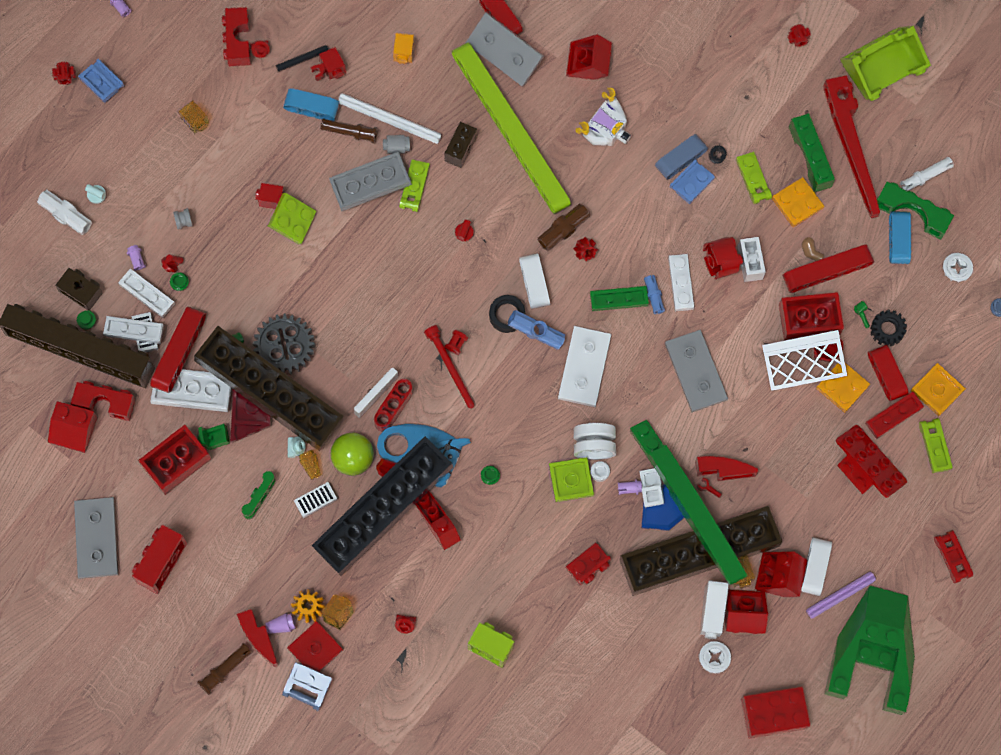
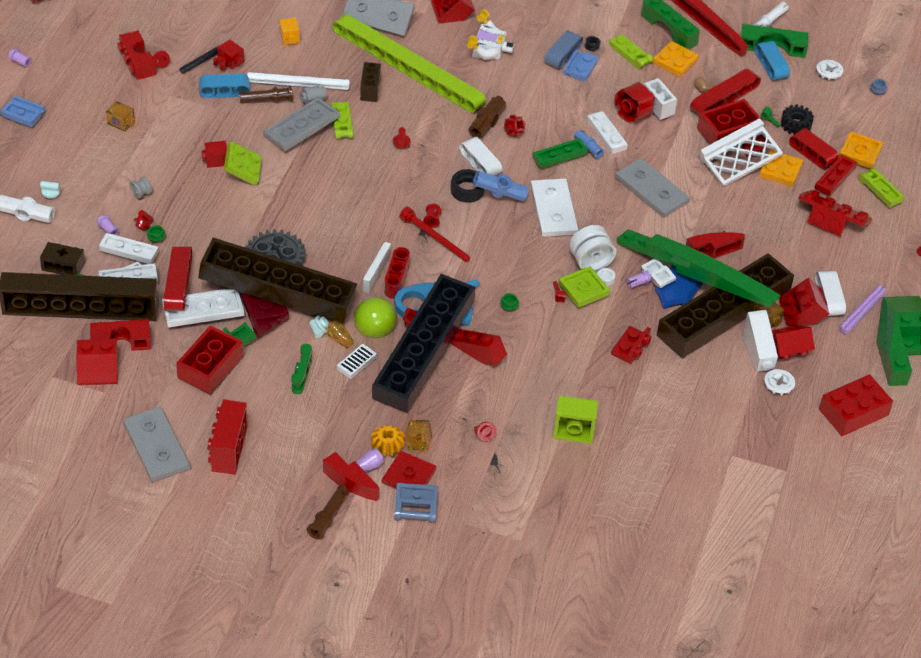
camera: 20 degrees left, 25 degrees down
(543, 481) = (559, 295): none -> red hand

